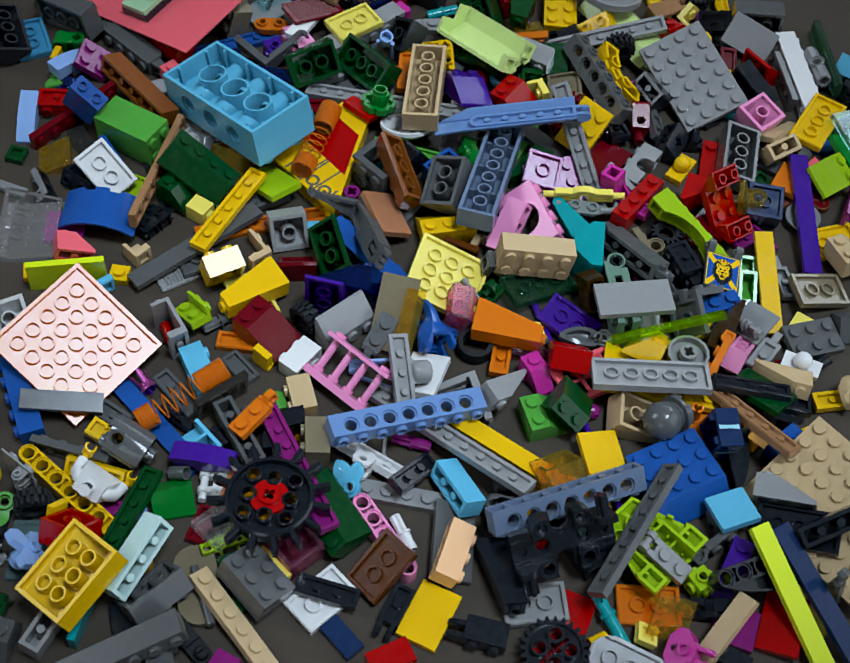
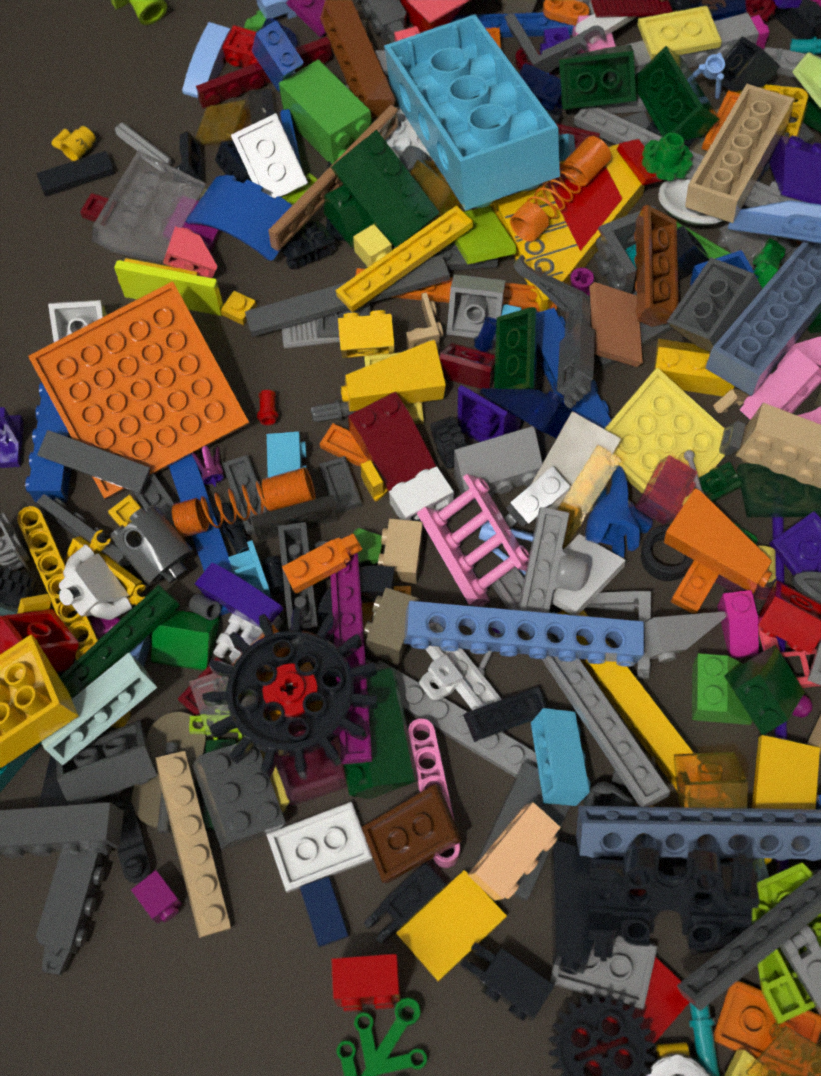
camera: 30 degrees right, 10 degrees up
(16, 155) = (176, 108): dark green tile -> none
(107, 282) = (212, 317): medium azure tile -> none
(137, 254) = (271, 286): tan panel -> none
(162, 311) = (270, 420): light grey panel -> none
(195, 311) = (308, 388): lime bracket -> none
(302, 244) = (486, 335): none -> clear blue pin
(327, 591) = (328, 842): black tile -> none
(349, 474) = (417, 689): medium azure plate -> none
(402, 532) = (461, 794): white axle -> none
(412, 442) = (529, 668): magenta axle -> none
(464, 246) = (707, 402): reddish brown tile -> none

